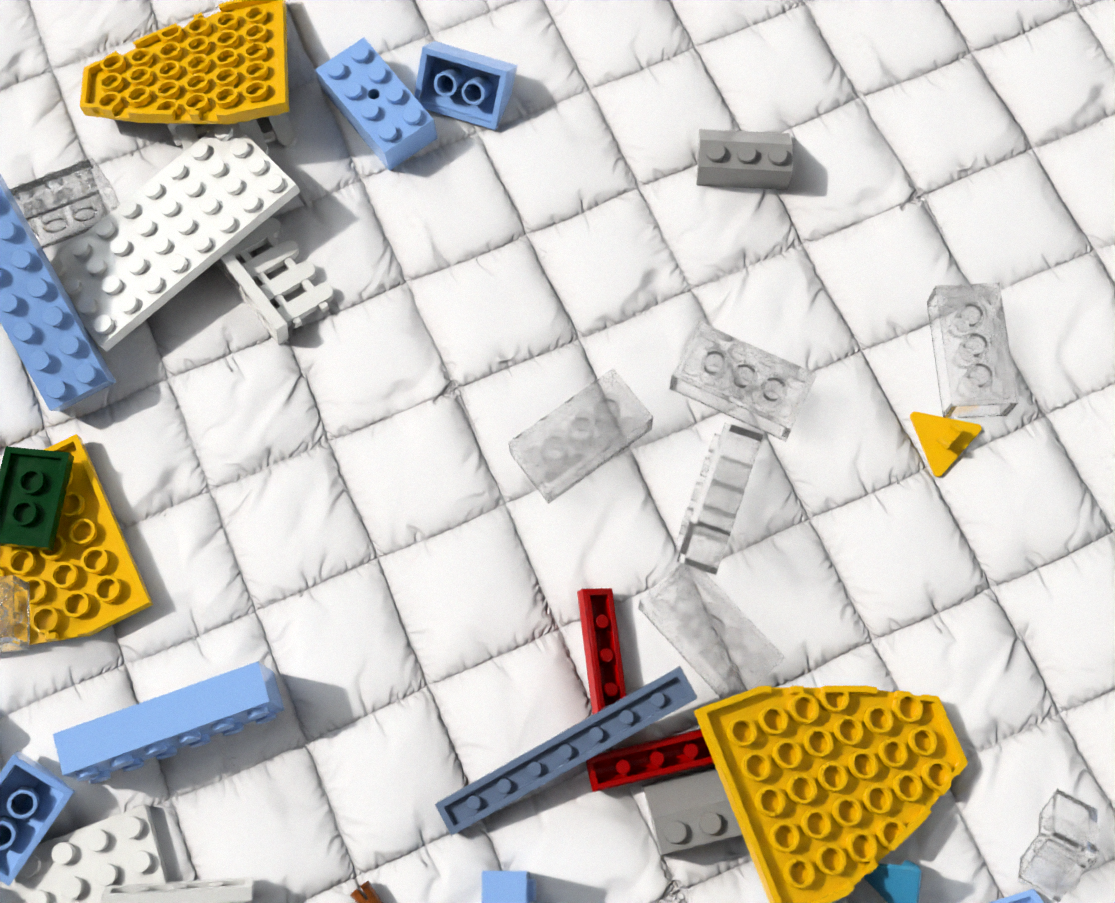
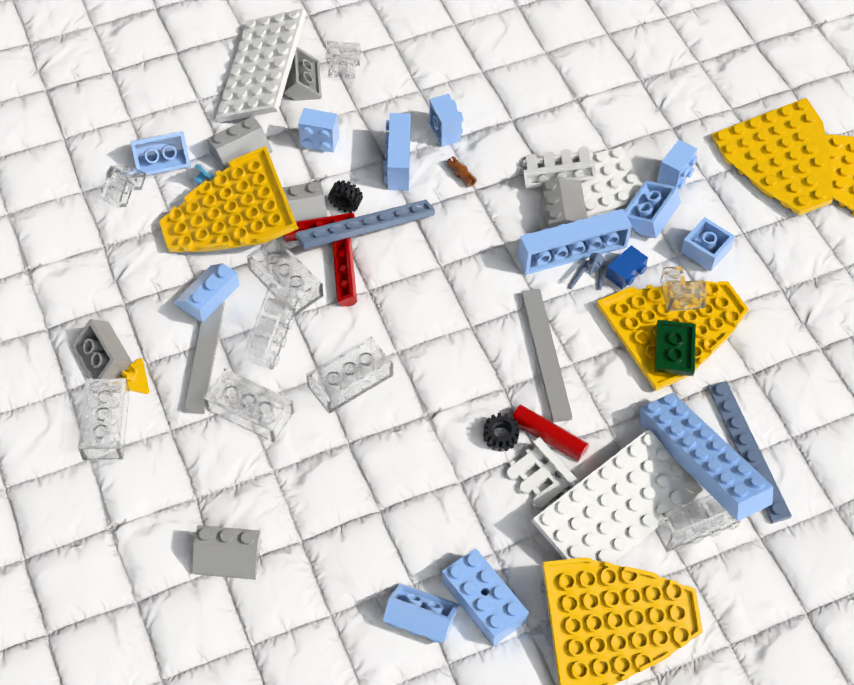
camera: 175 degrees right, 15 degrees down
(83, 680) = (627, 267): none -> blue brick
(142, 688) = (594, 264): none -> sand blue plant
(178, 818) = (563, 201): none -> light grey slope
(252, 506) = (546, 356): none -> light grey tile
(259, 358) = (550, 433): none -> red brick
(330, 337) = (501, 422): none -> black tyre
(610, 824) = (345, 196): none -> black tyre
(830, 505) = (203, 362): none -> light grey tile
(849, 595) = (208, 291): none -> light blue slope
(1005, 470) = (100, 351): none -> light grey slope

